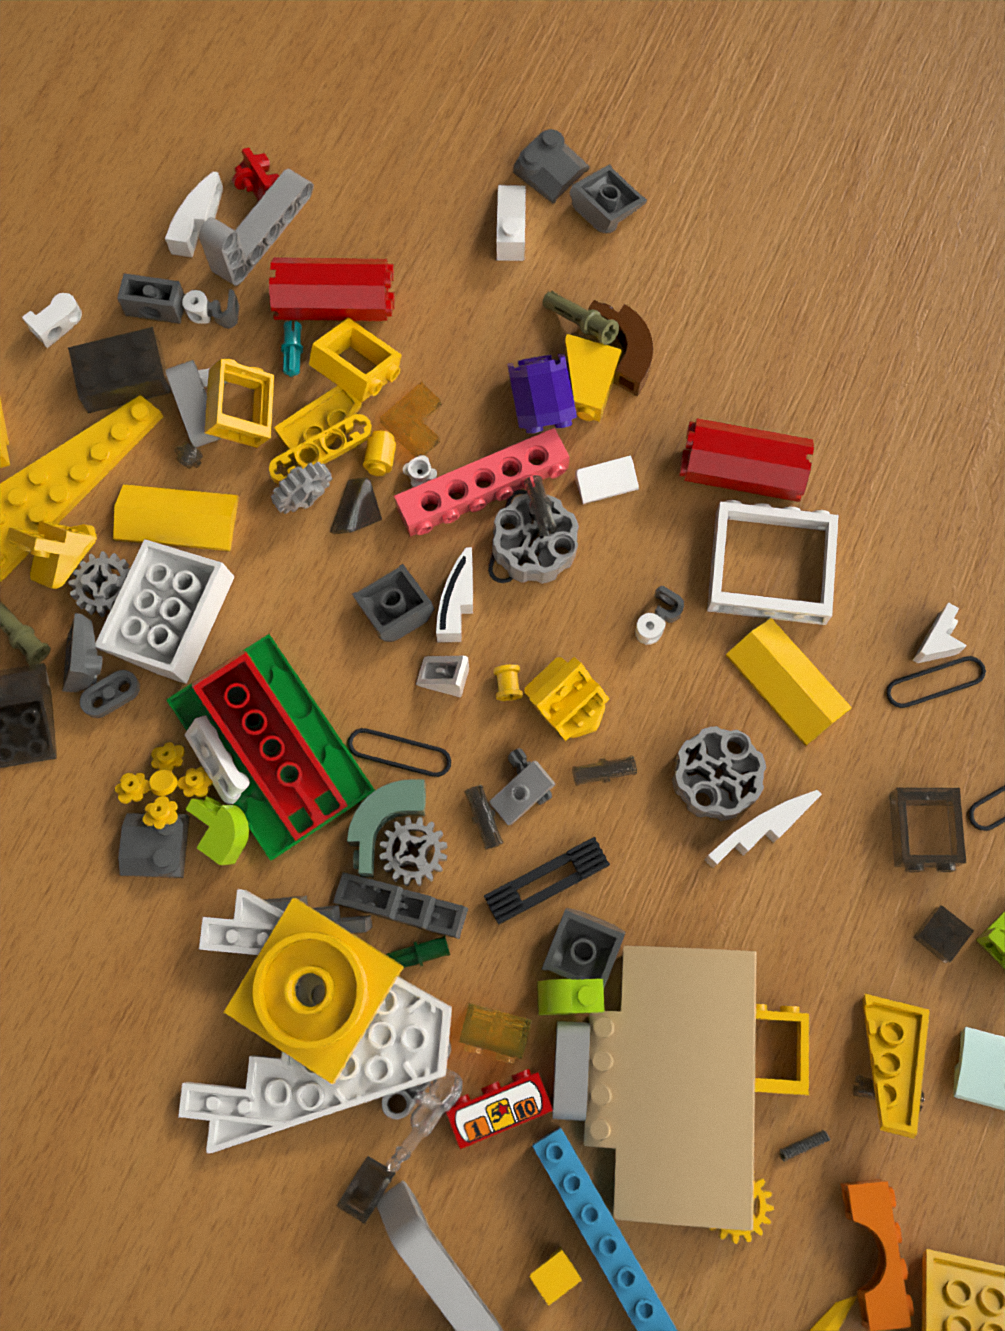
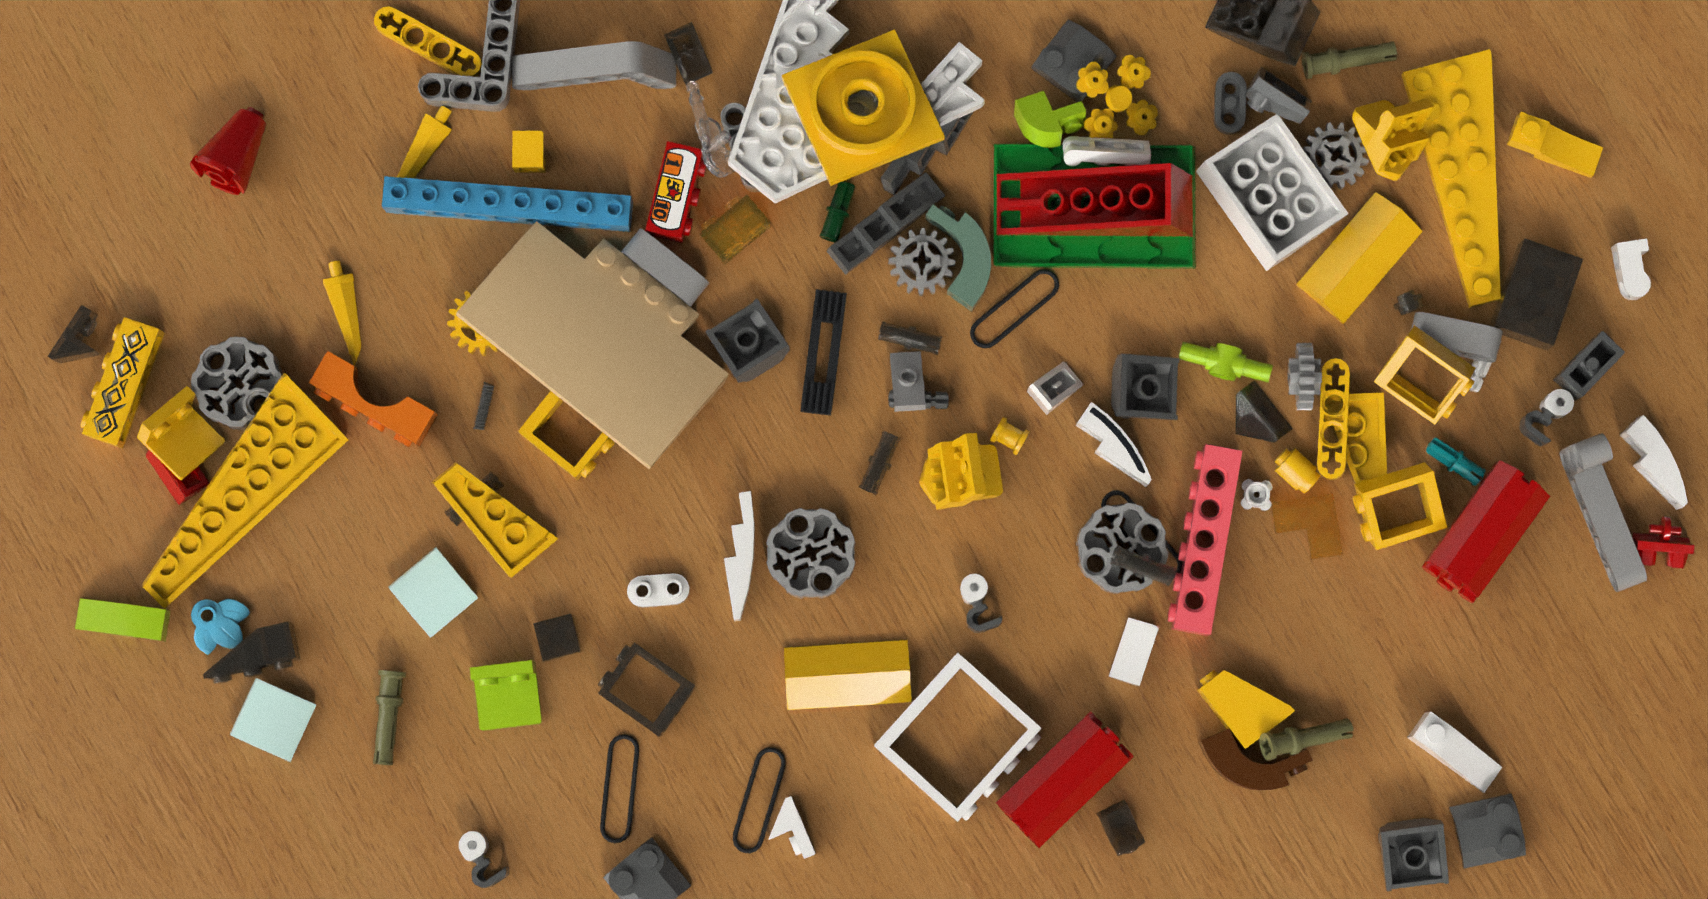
camera: 125 degrees right, 10 degrees up
(330, 559) = (1225, 362): none -> lime pin
(542, 393) = (1253, 648): dark purple brick -> none
(570, 996) = (720, 302): lime brick -> none
(747, 400) = (1121, 828): none -> clear smoke bracket
(839, 880) = (658, 590): none -> white plate

